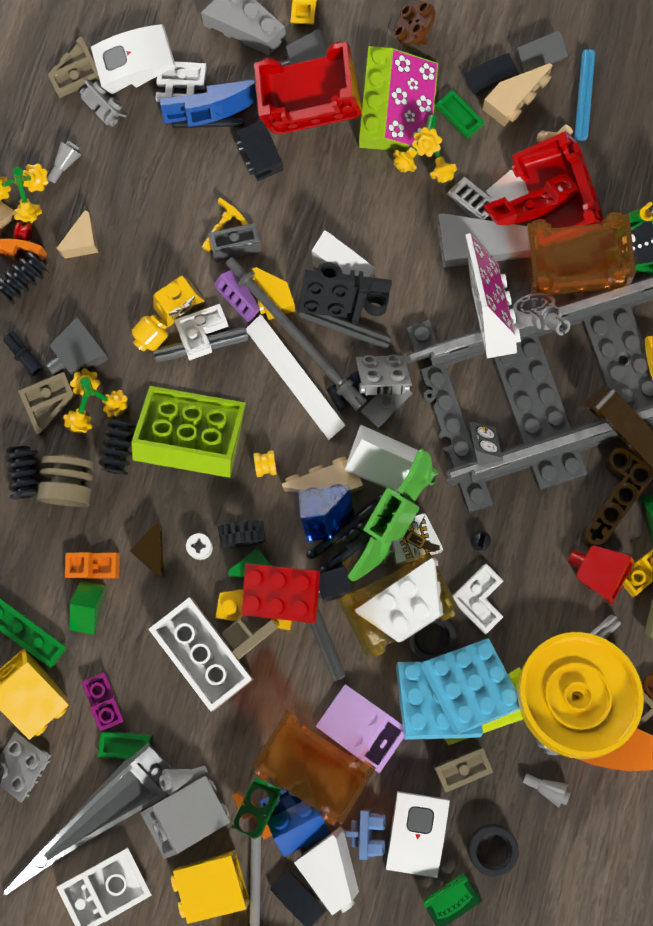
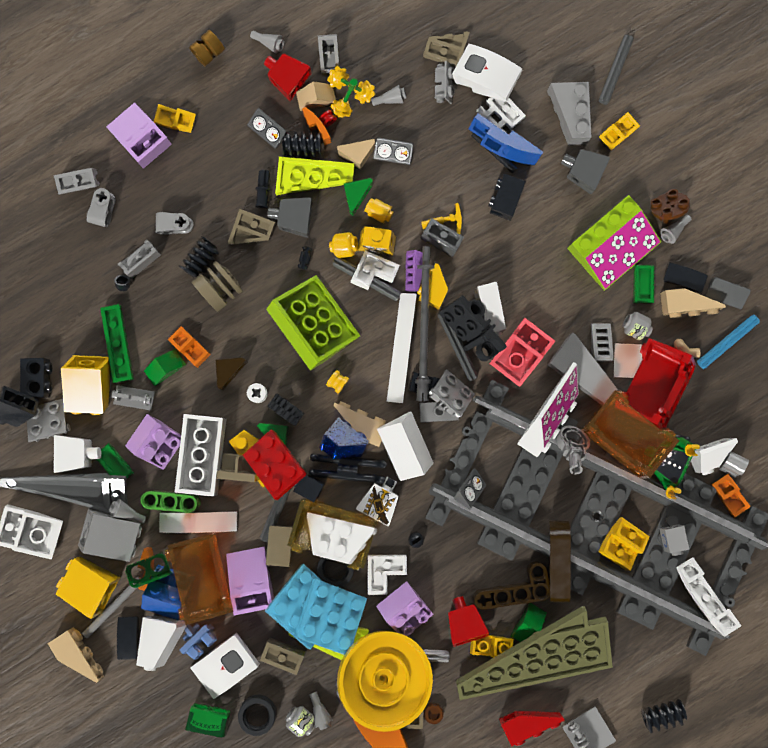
camera: 35 degrees right, 5 degrees up
(54, 300) = (308, 174): none -> neon yellow wing
(76, 772) = (73, 453): none -> white torso
(84, 664) = (133, 397): none -> light grey hinge
(86, 385) = (281, 240): yellow plant -> none
(102, 701) = (125, 427): magenta slope -> none
(113, 206) = (393, 151): none -> slope
(115, 276) = (356, 193): none -> green slope
(117, 447) = (263, 294): black piece -> none
(124, 379) = (304, 257): none -> black piece
(145, 685) = (154, 442): none -> lavender slope
(152, 271) = (379, 210): none -> yellow brick
(202, 732) = (161, 501): none -> bright green beam
(259, 722) = (198, 522): none -> white slope
(308, 91) = (567, 188): red windscreen -> none
(358, 667) = (277, 550): none -> dark tan panel
(394, 515) = (377, 483): bright green torso -> none
(412, 275) = (523, 352): none -> coral slope
(426, 143) = (605, 285): yellow plant -> none
(439, 46) = (671, 233): none -> light grey cone
(490, 155) = (637, 325): none -> light grey head
(533, 205) = (633, 378): red slope -> none
(533, 613) = (404, 610): none -> lavender slope
(539, 815) = (300, 721): none -> light grey head

